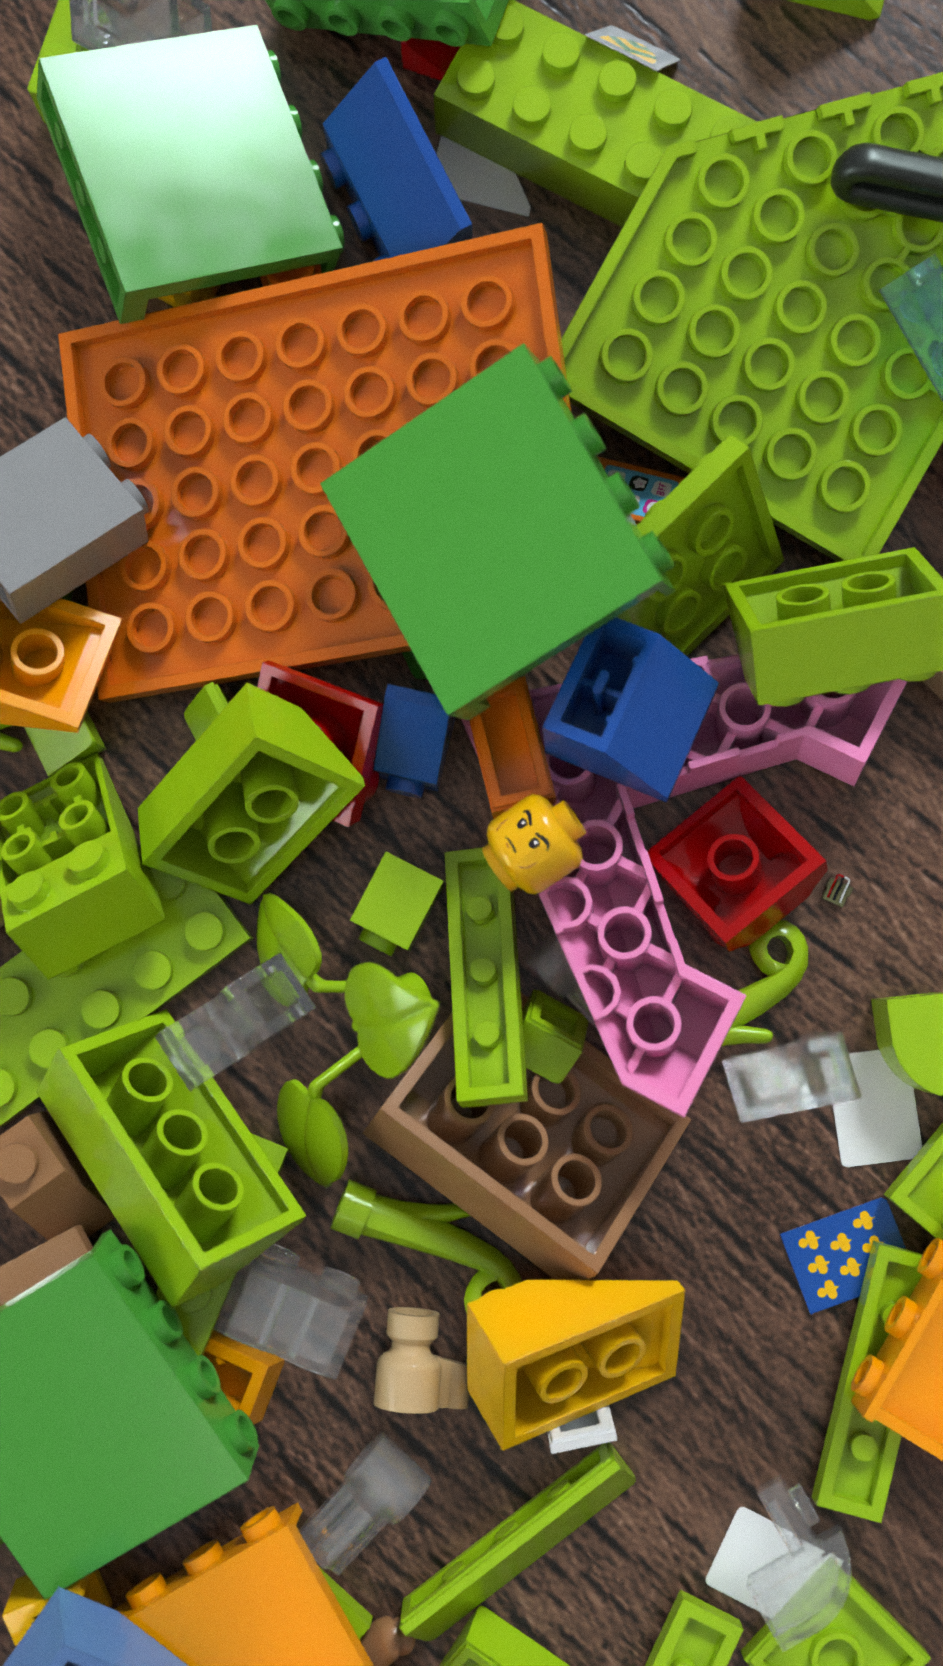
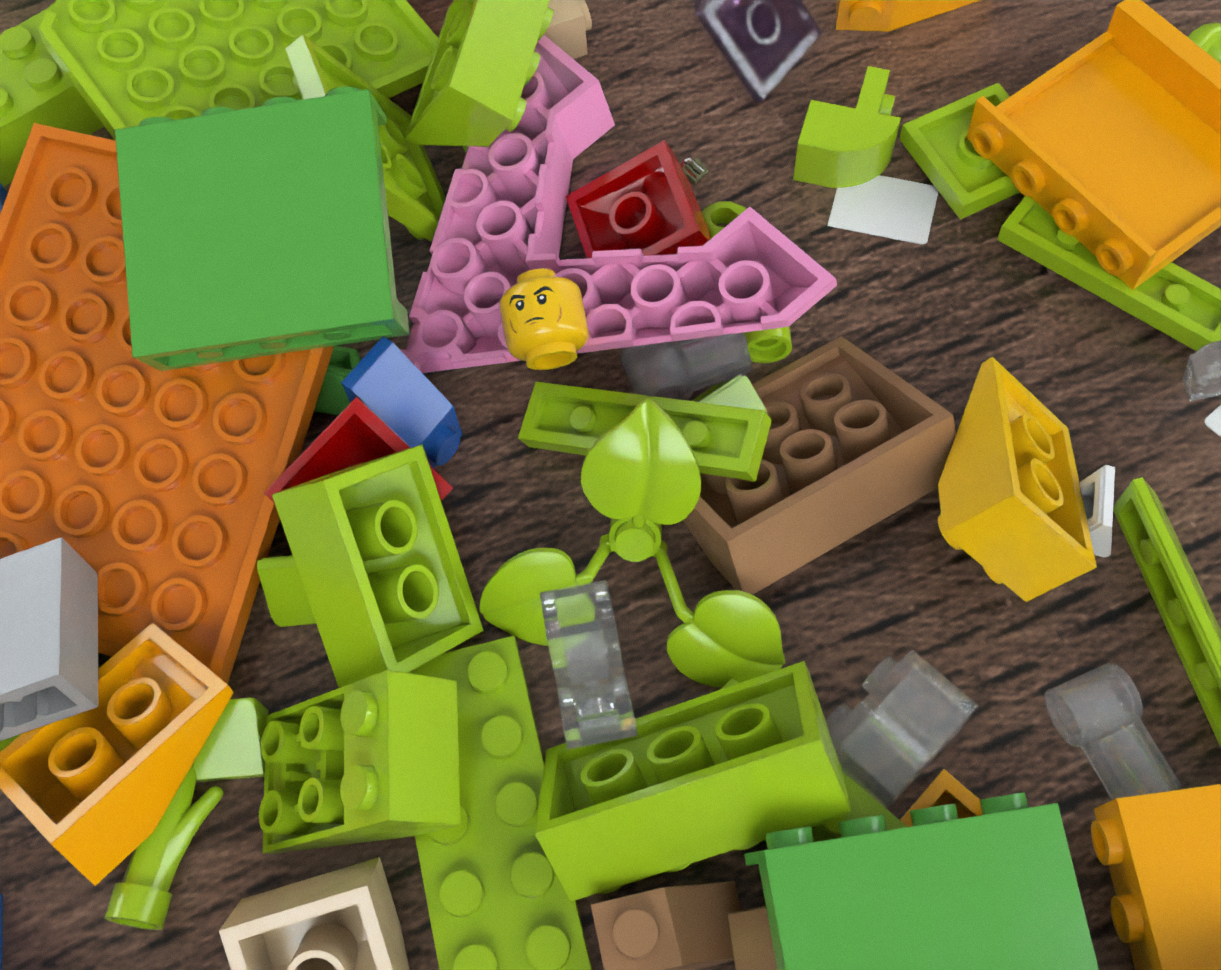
camera: 65 degrees left, 20 degrees down
(396, 904) = (543, 490): lime brick -> none
(409, 1374) = (992, 644): tan piece -> none
(423, 1229) = (821, 631): lime plant -> none
(511, 749) = (453, 331): orange tile -> none
(629, 708) = (464, 218): blue slope -> none
(792, 1076) = (837, 225): clear slope -> none
(835, 1252) = (997, 273): blue sticker -> none

